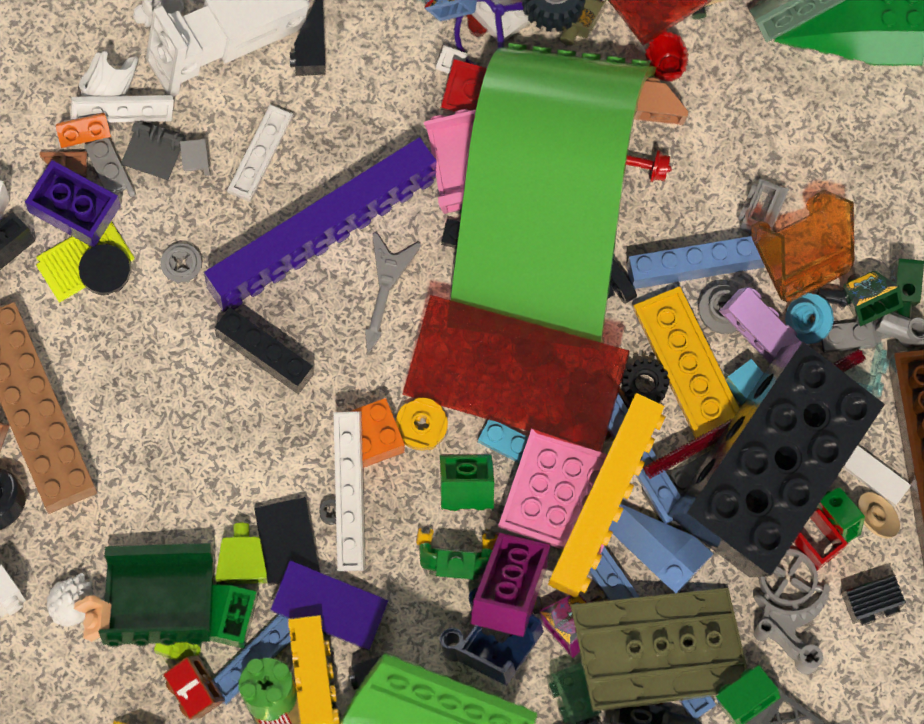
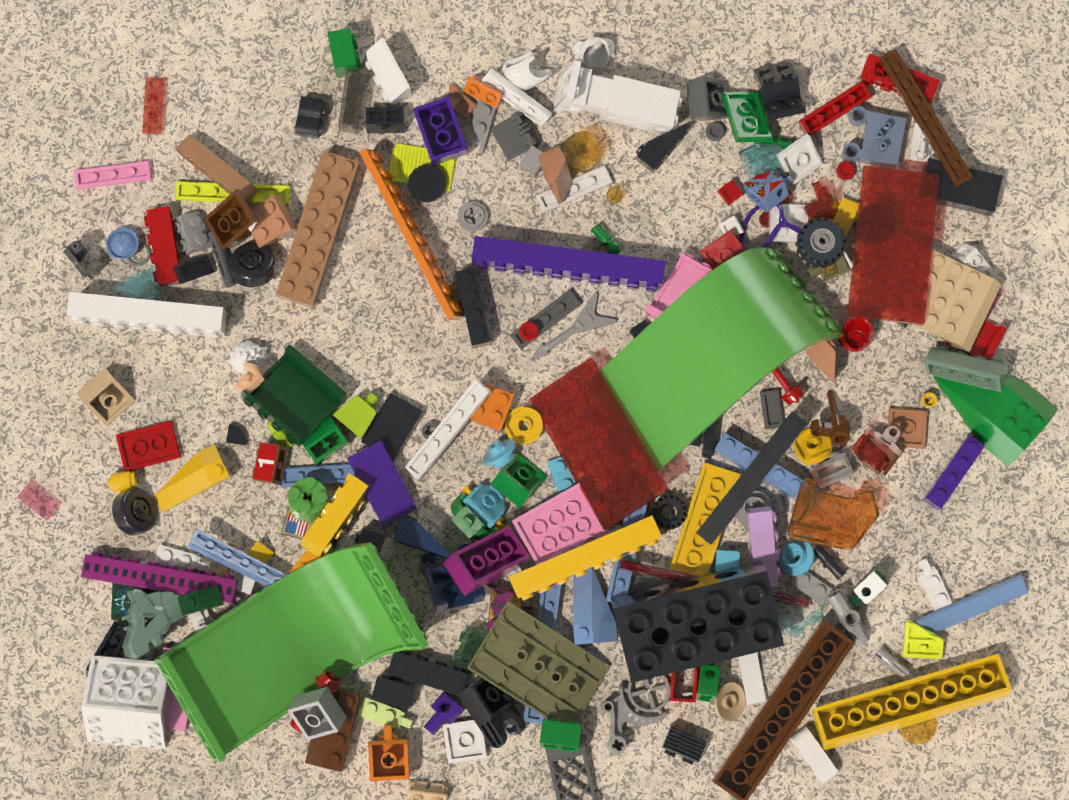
camera: 45 degrees right, 10 degrees up
(127, 323) = (409, 229): none -> orange plate
(129, 692) = (235, 436): none -> black tile
(228, 98) = (582, 141): none -> clear yellow brick
(228, 146) = (556, 172): none -> nougat slope
(306, 124) = (614, 195): none -> clear yellow hinge
(334, 173) = (612, 247): none -> green pin
(341, 326) = (528, 331): none -> red tile
(347, 302) = (549, 316): none -> dark grey tile
(419, 29) = (730, 193): none -> red plate
(419, 625) = (415, 536): none -> dark blue slope
(423, 469) = (499, 453): none -> medium azure piece
(456, 532) = (486, 503): none -> medium azure tile
(651, 200) = (771, 409): none -> dark grey tile
(696, 276) = (751, 477): none -> black tile
(731, 159) = (836, 427): none -> reddish brown piece
(731, 208) = (812, 455): none -> yellow plate
(788, 159) = (870, 454): none -> clear red arch
(789, 129) = (890, 440): none -> piece
(795, 65) = (931, 402): none -> yellow hinge
(795, 109) = (912, 425): none -> nougat tile
(871, 296) = (840, 577): dark green torso -> none
(879, 111) = (953, 472): none -> dark purple brick

